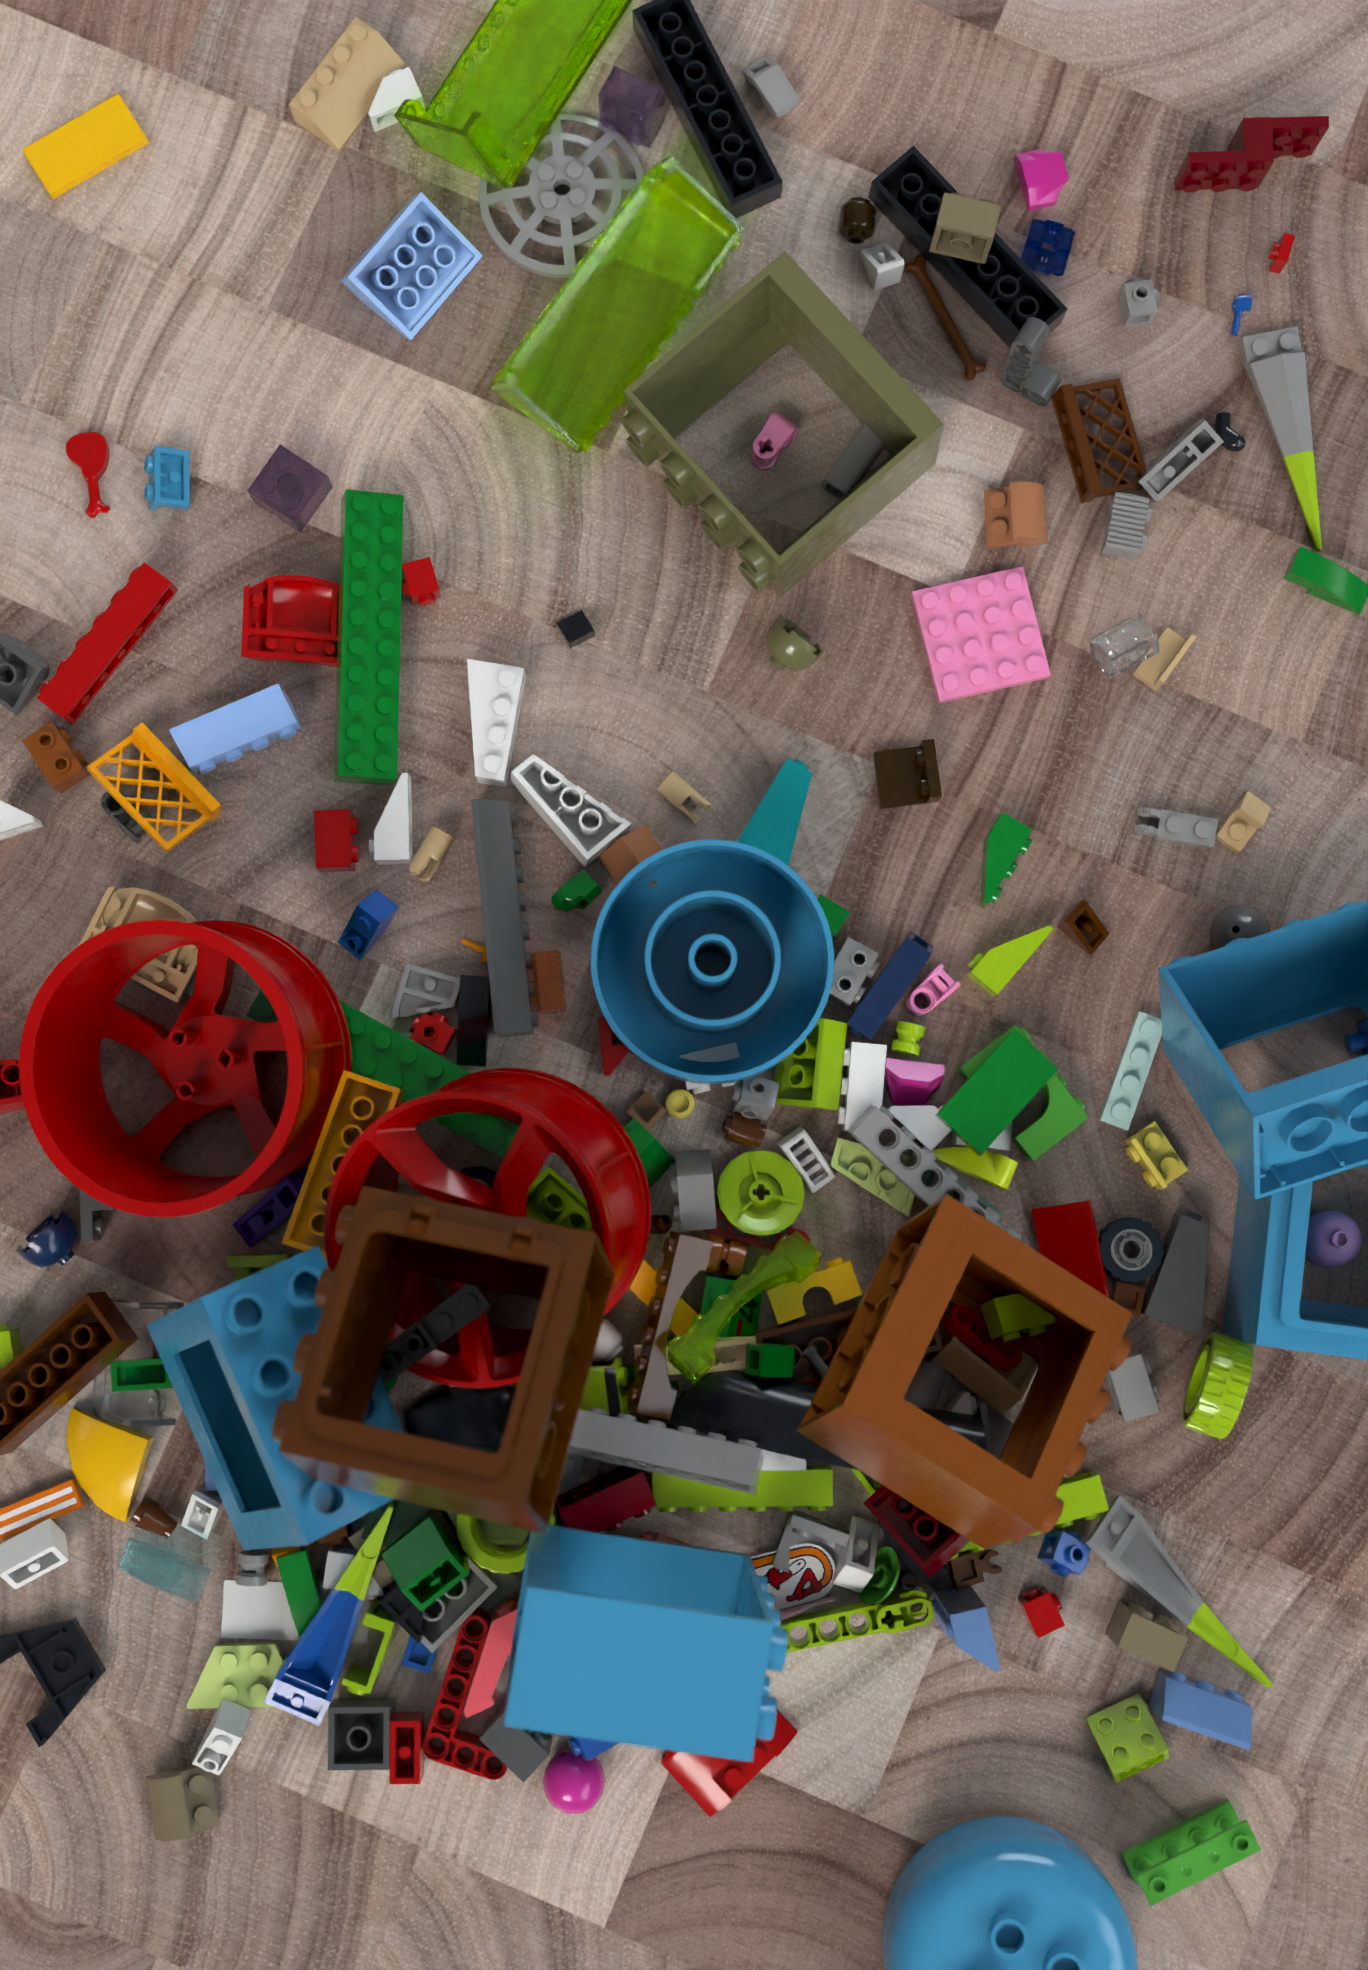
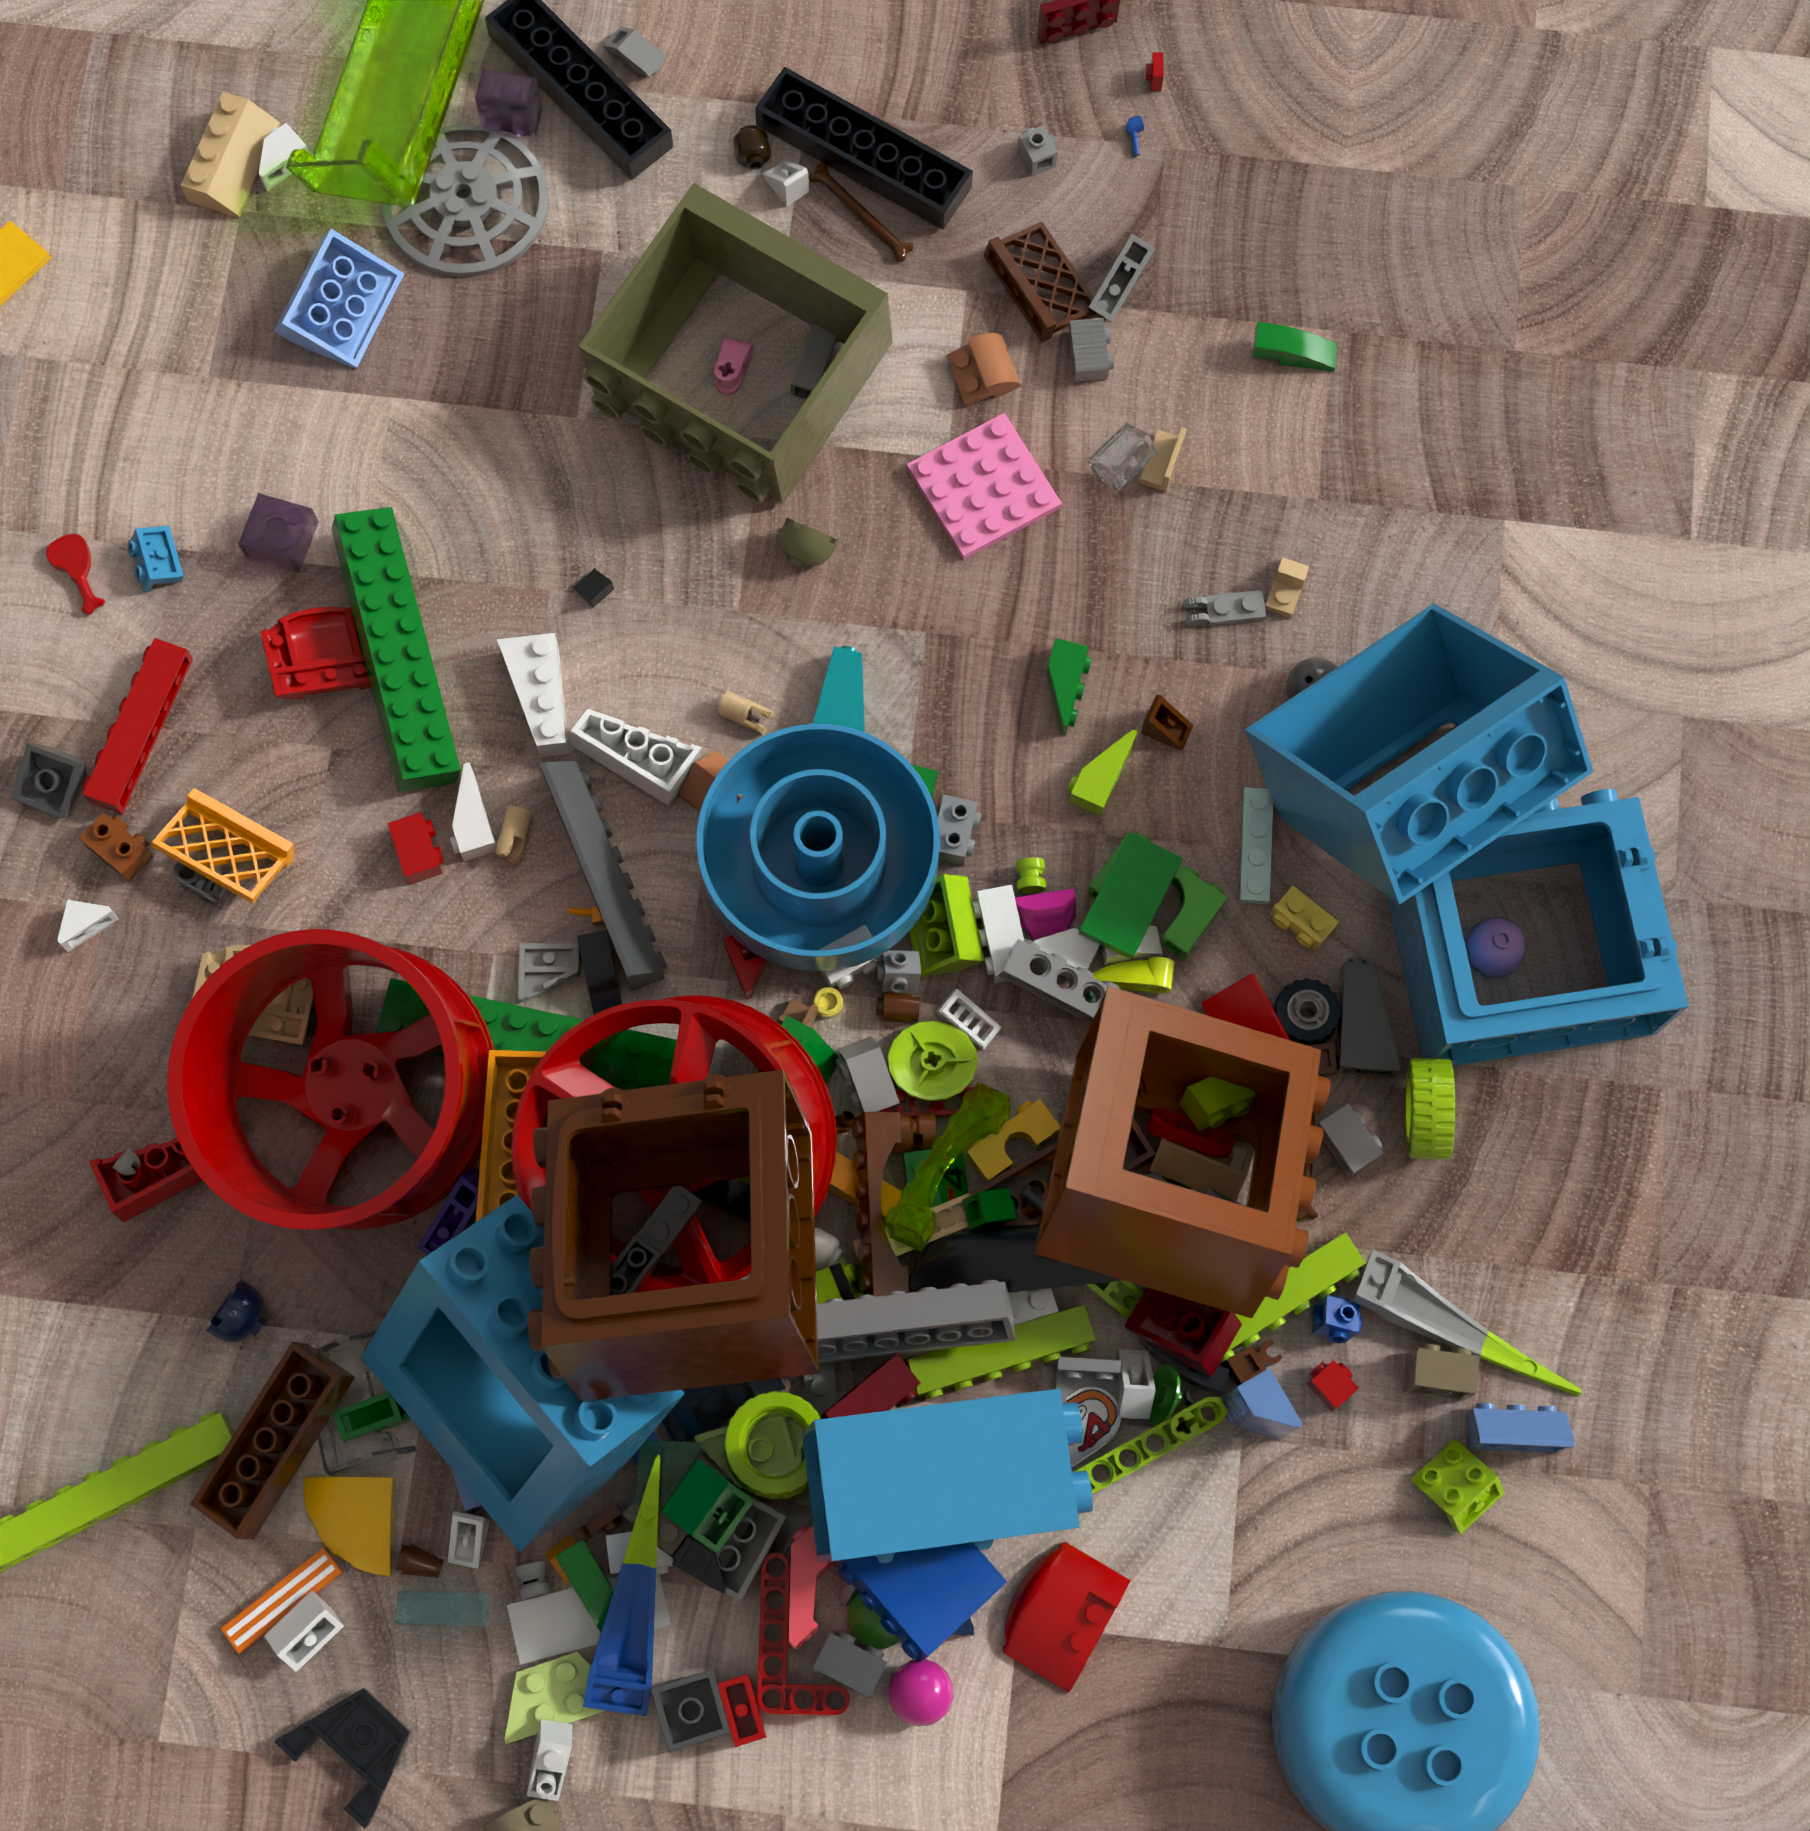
camera: 15 degrees left, 10 degrees down
(91, 1222) = (270, 1266): dark grey slope -> none
(236, 729) = (289, 768): light blue slope -> none
(362, 1680) = (689, 1586): lime panel -> none
(367, 923) = (470, 917): blue slope -> none
(418, 1656) = (728, 1614): blue plate -> none
(420, 582) = (431, 583): red brick -> none
(433, 1032) = (565, 1000): red brick -> none
(549, 981) = (665, 921): clear orange brick -> none
(576, 893) = (667, 830): green rock -> none
(619, 305) = (548, 282): clear neon green windscreen -> none
(865, 1170) = (1032, 1013): yellowish green wing -> none
(890, 985) = (997, 830): dark blue slope -> none
(908, 776) = (955, 632): dark brown bracket -> none
(934, 988) = (1041, 821): bright pink piece -> none
(965, 227) = (854, 123): dark tan brick -> none
(1023, 372) = (947, 237): dark grey beam -> none
(1040, 177) = (912, 65): dark pink slope -> none
(1043, 259) = (938, 135): clear blue piece -> none
(1190, 1851) = (1551, 1570): bright green fence -> none
(1231, 438) = (1163, 247): black arm -> none
(1280, 381) = (1192, 184): light grey plate -> none

